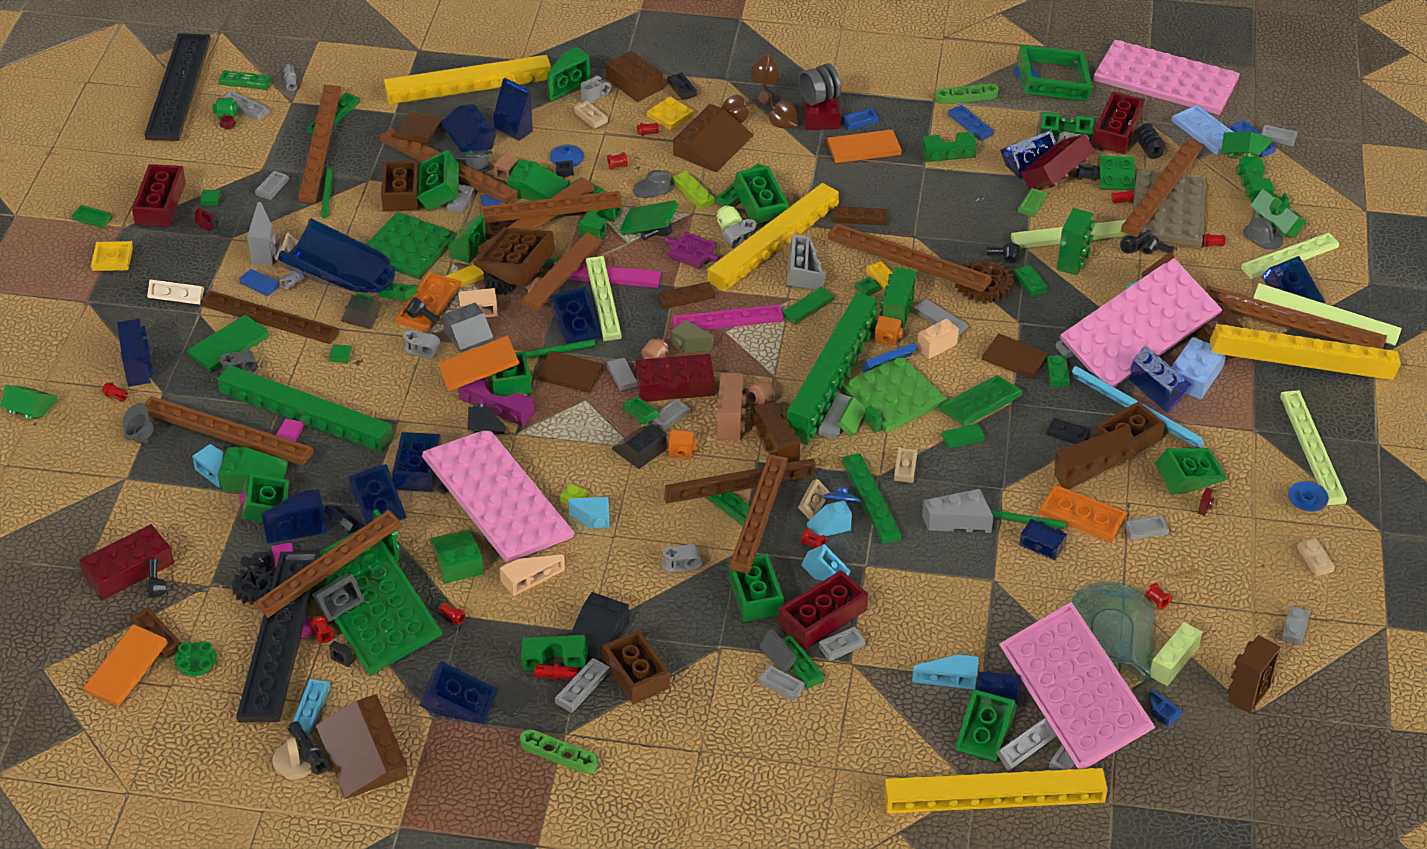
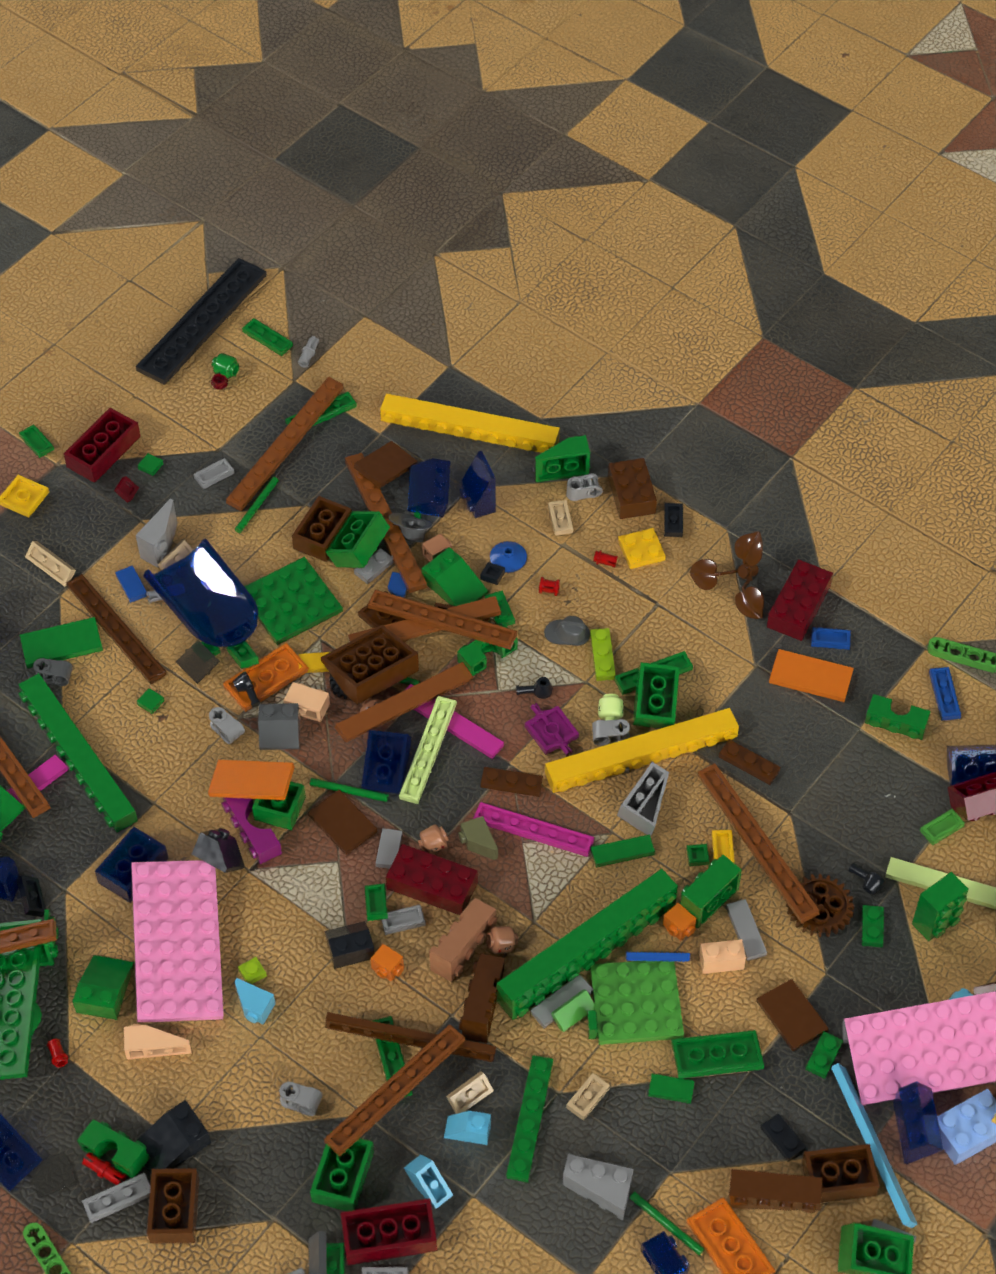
camera: 30 degrees right, 10 degrees up
(249, 107) = (249, 368): light grey tile -> none
(376, 490) = (73, 887): clear blue slope -> none
(468, 239) = (345, 621): green slope -> none
(648, 217) = (531, 672): green tile -> none
(711, 139) = (659, 600): reddish brown slope -> none
(808, 535) = (438, 1141): red bush -> none
(819, 84) = (795, 588): dark grey wheel -> none
(840, 495) = (493, 1107): blue dish -> none

